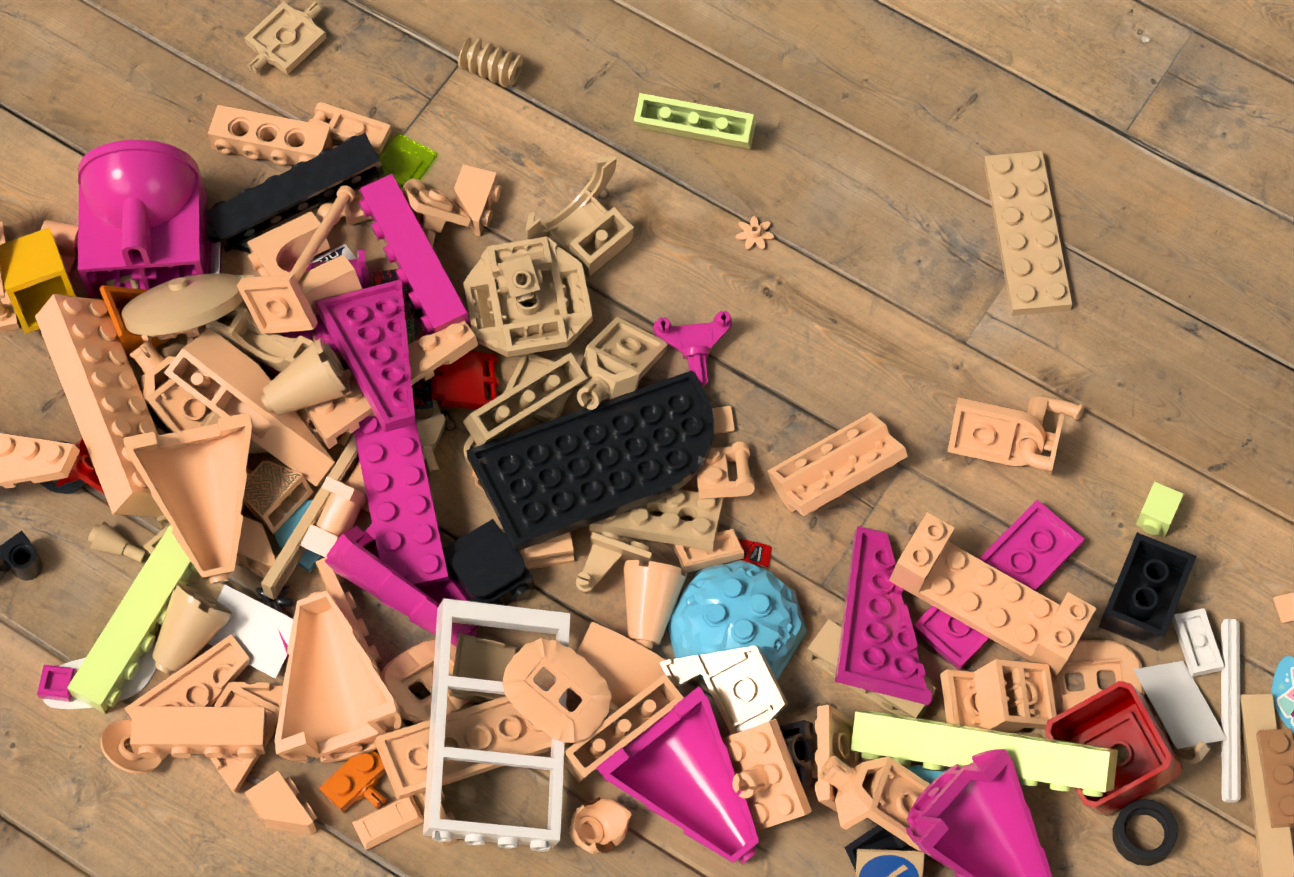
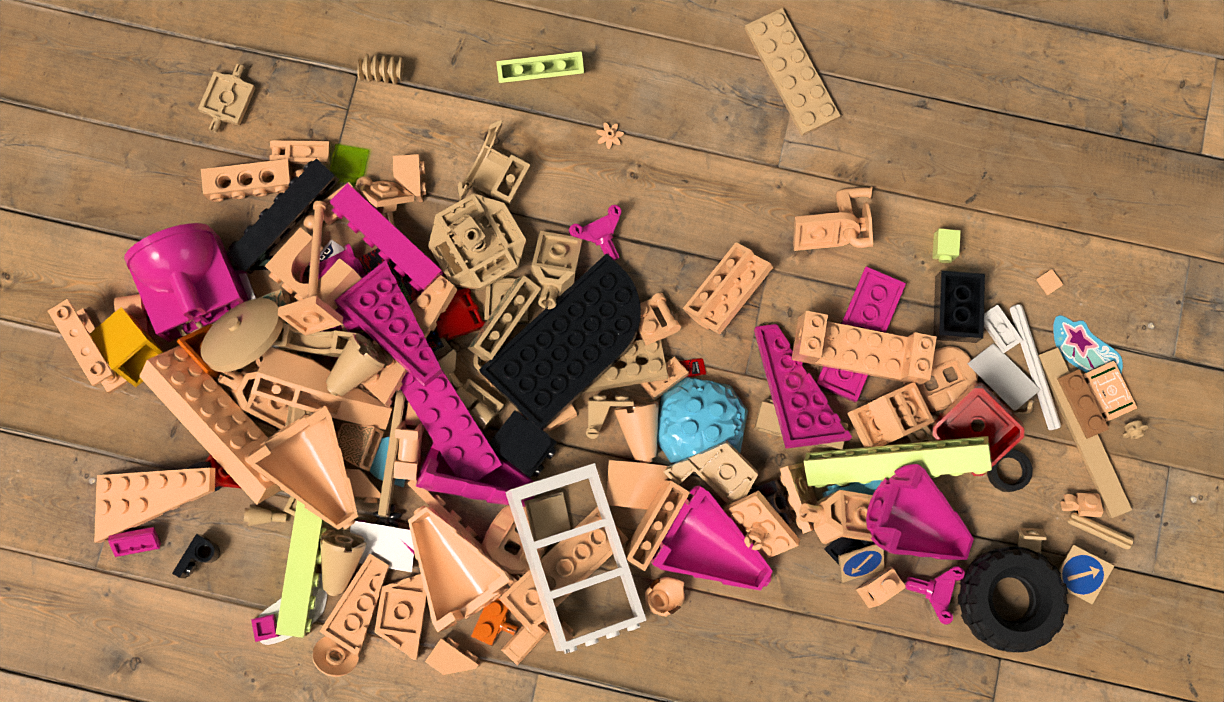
camera: 25 degrees left, 15 degrees up
(198, 731) = (376, 632): light nougat brick -> none
(451, 501) = (480, 404): none -> tan plate
(542, 706) = (604, 538): light nougat piece -> none
(723, 420) = (638, 279): light nougat piece -> none

